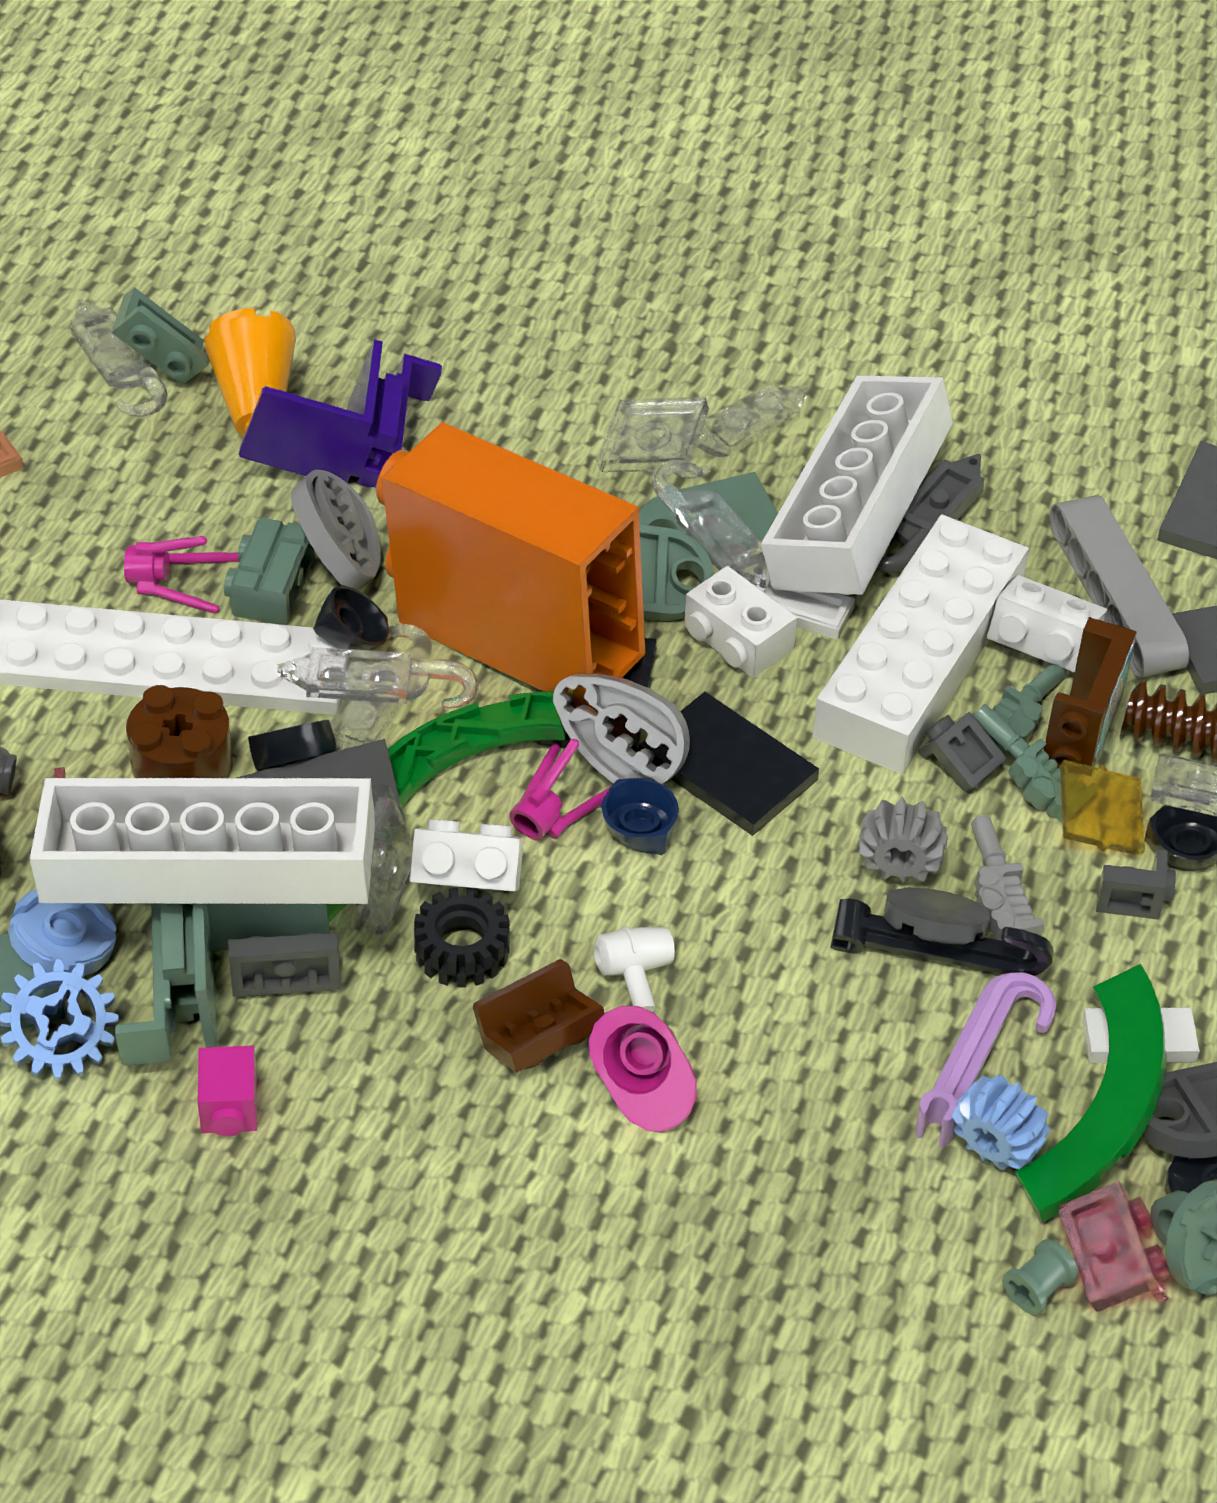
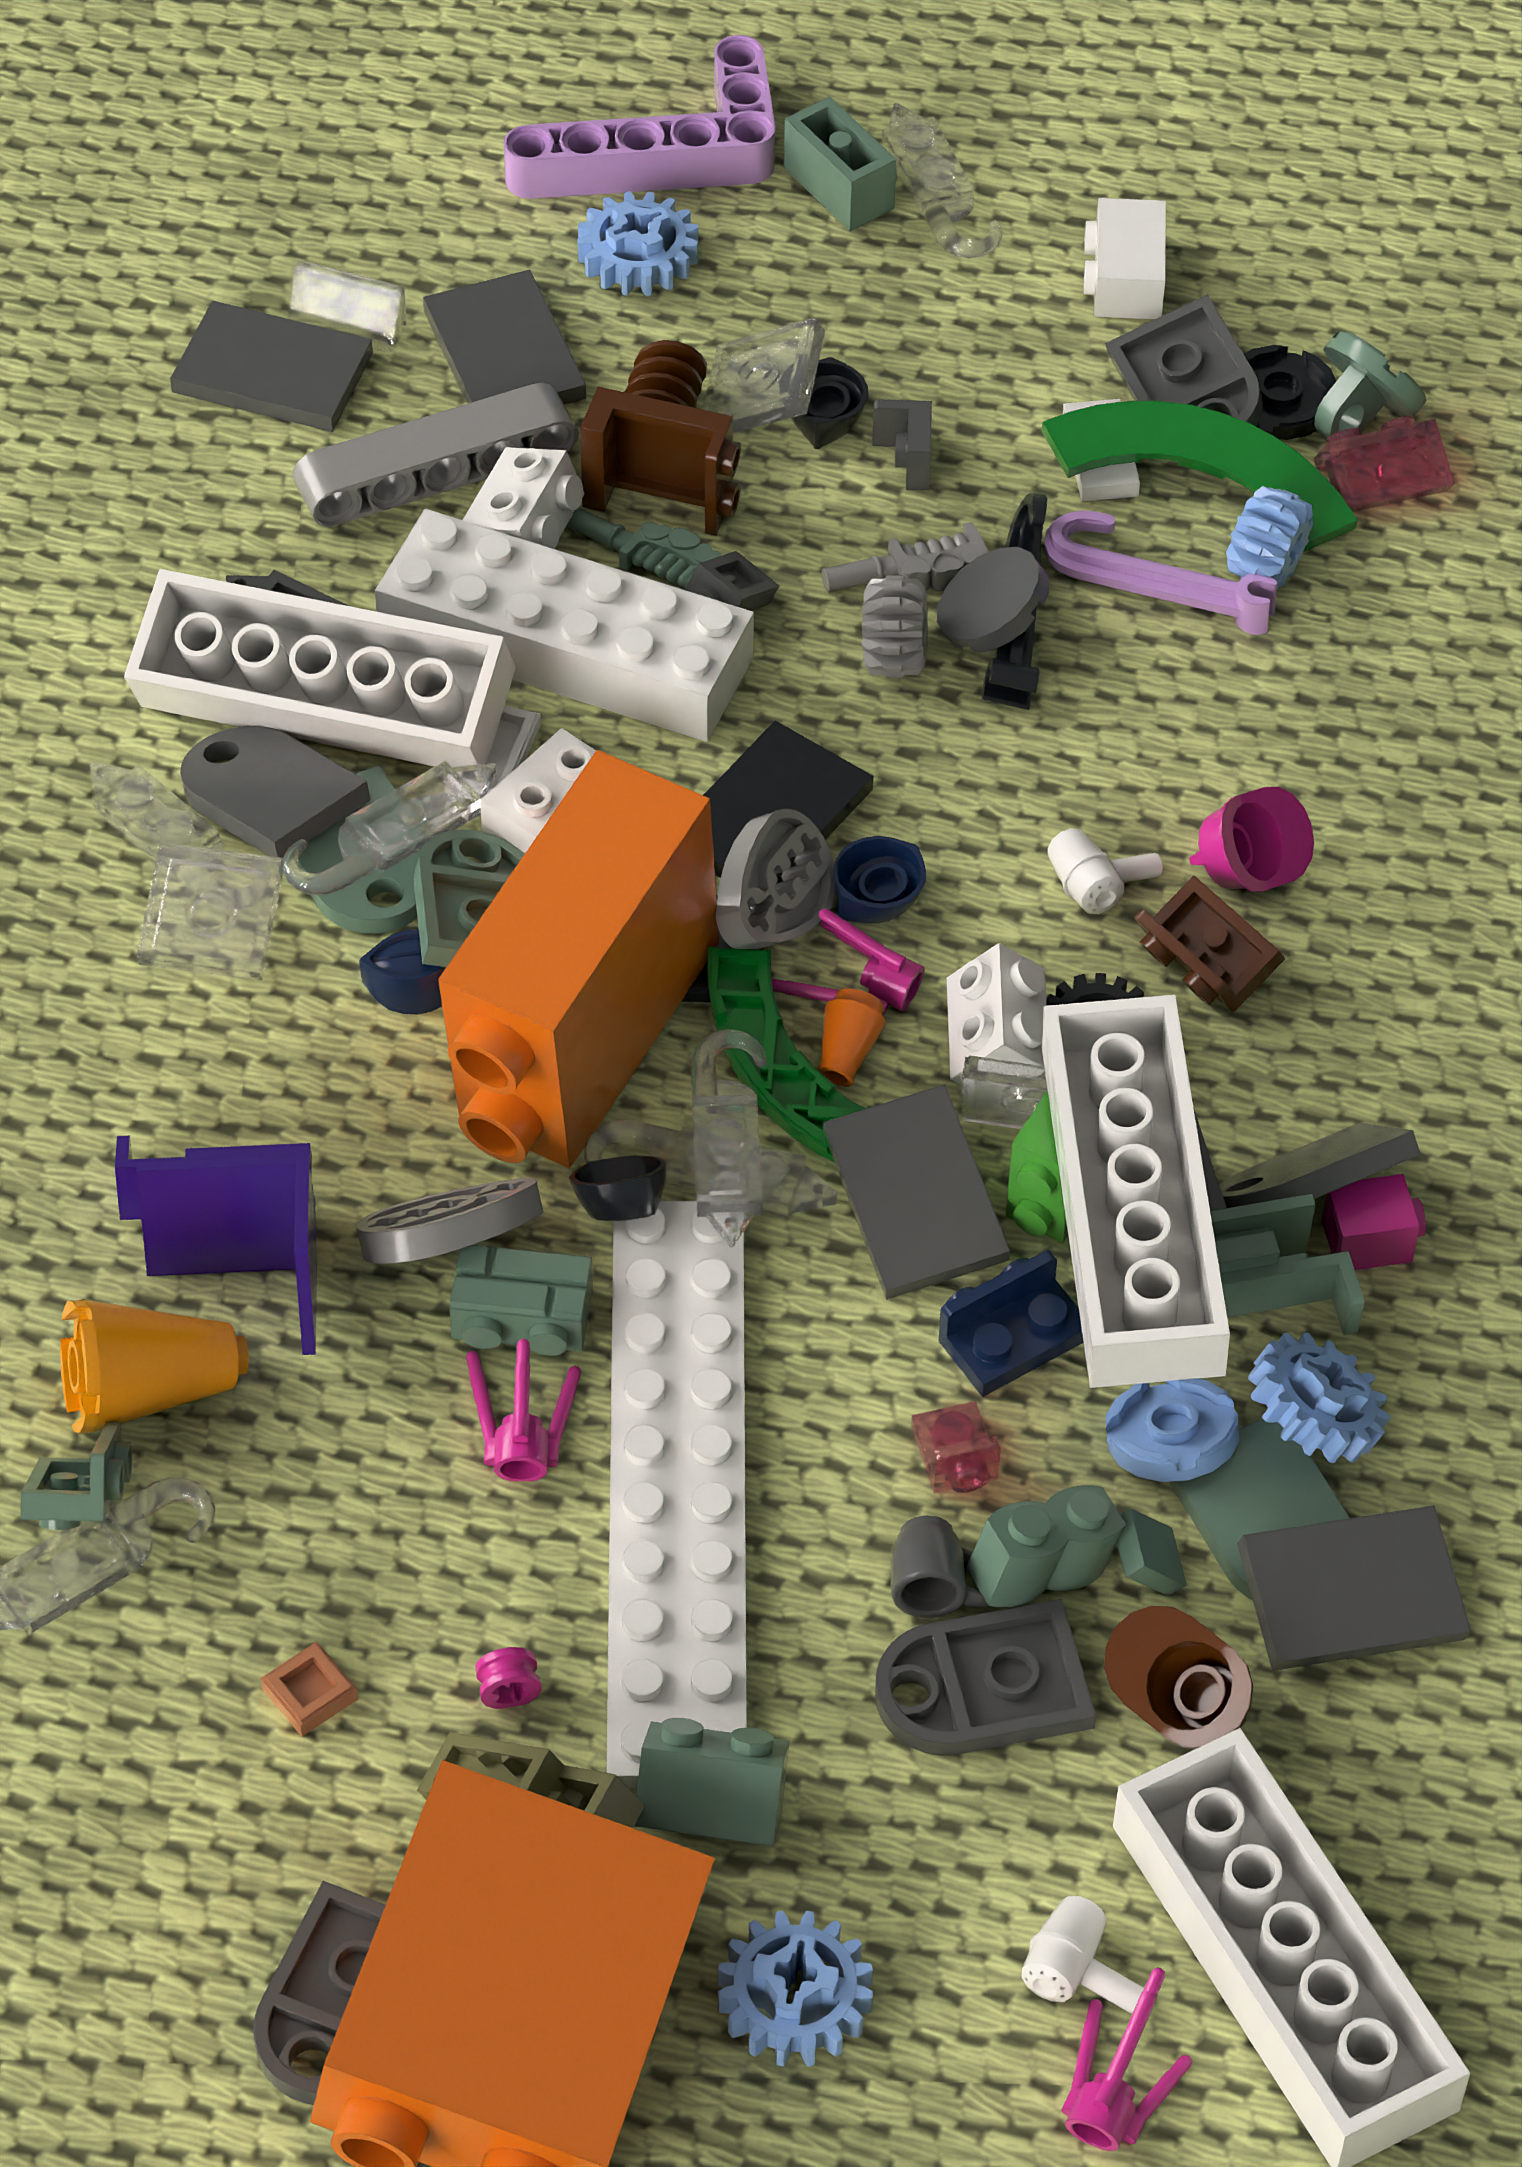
camera: 95 degrees left, 5 degrees up
(179, 734) = (854, 1345): reddish brown brick -> none
(276, 1045) = (1322, 1165): none -> dark grey tile
(291, 744) = (827, 1231): black hat -> none
(486, 780) = (849, 1032): none -> orange cone
(756, 465) = (269, 788): none -> dark grey tile
(1032, 768) = (753, 524): sand green piece -> none
(1040, 1276) = (1433, 520): sand green bush -> none
(1102, 808) = (793, 472): clear yellow piece -> none

